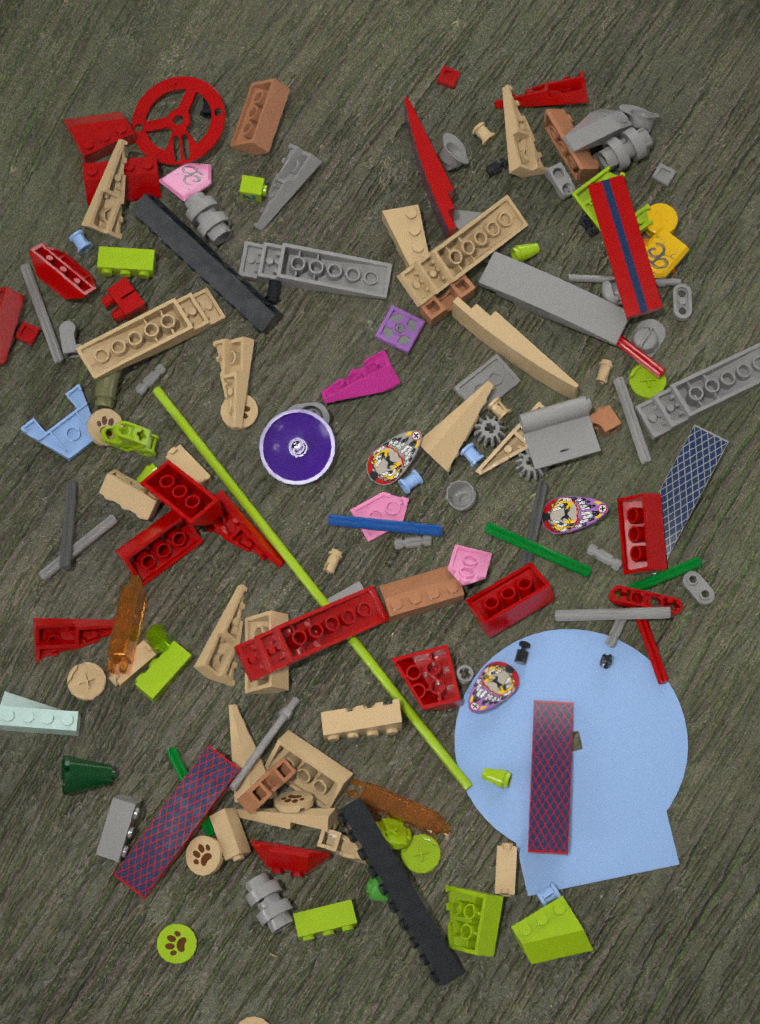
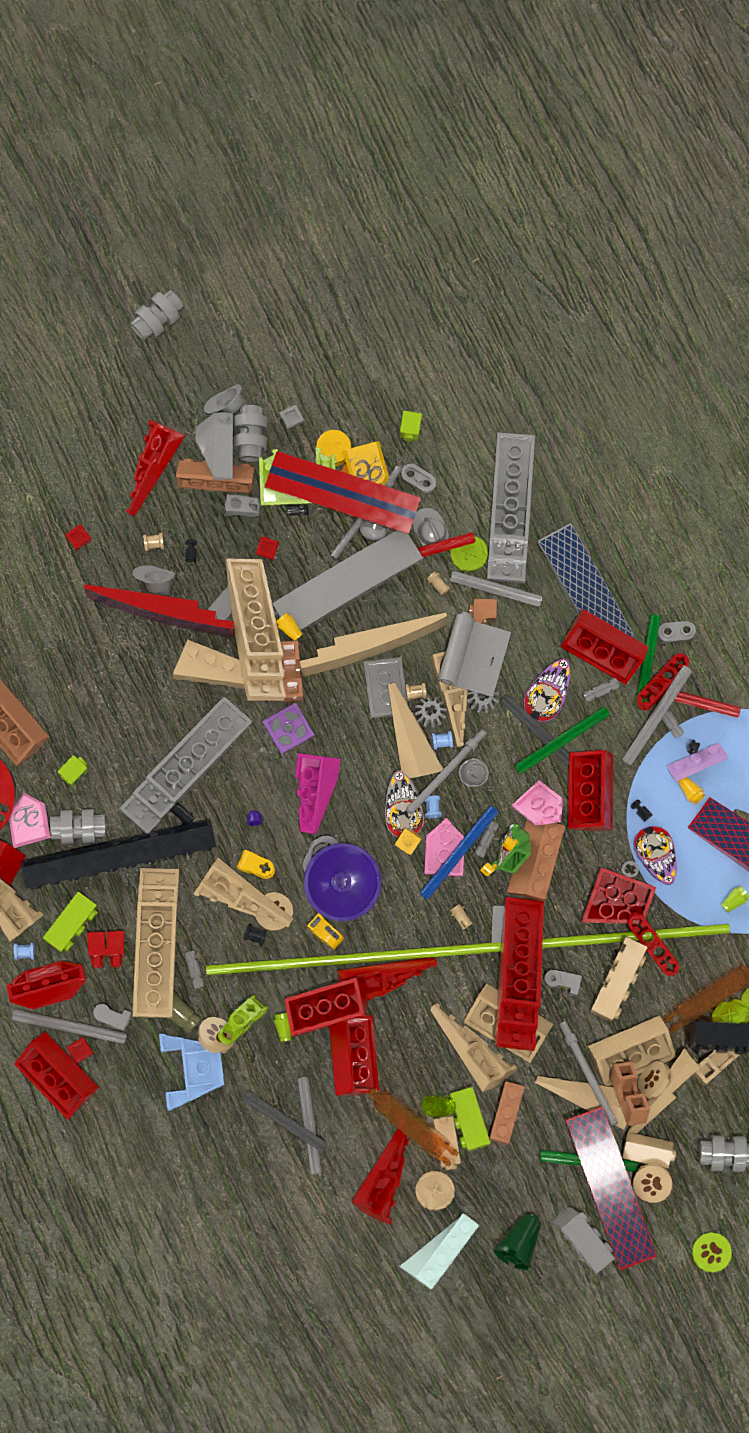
camera: 60 degrees left, 5 degrees up
(129, 495) = (292, 1052): tan brick -> none
(189, 465) = (297, 985): tan brick -> none
(200, 693) = (506, 1113): none -> nougat arch
(209, 408) = (255, 935): none -> black bush
(248, 460) = (325, 932): none -> yellow leg
(268, 372) = (252, 864): none -> yellow piece
(289, 859) = (699, 1114): red wedge -> none
(294, 173) = (82, 728): light grey wedge -> none
(306, 349) = (254, 818): none -> dark purple hinge
(330, 671) = (563, 980): none -> light grey leg
(367, 478) = (408, 840): none -> yellow brick
(408, 728) = (654, 943): none -> red beam
(414, 565) = (513, 851): none -> bright green torso
(482, 273) = (289, 626): none -> yellow cone
(483, 480) = (469, 747): none -> light grey bar
(521, 150) = (190, 519): tan wedge -> none
(524, 251) = (285, 581): lime cone -> none
(540, 223) = (267, 548): none -> red tile
(567, 683) = (691, 790): none -> yellow cone
(595, 672) = (697, 762): none -> lavender plate
(672, 20) = (162, 310): none -> light grey piece
(722, 268) = (410, 426): none -> lime brick

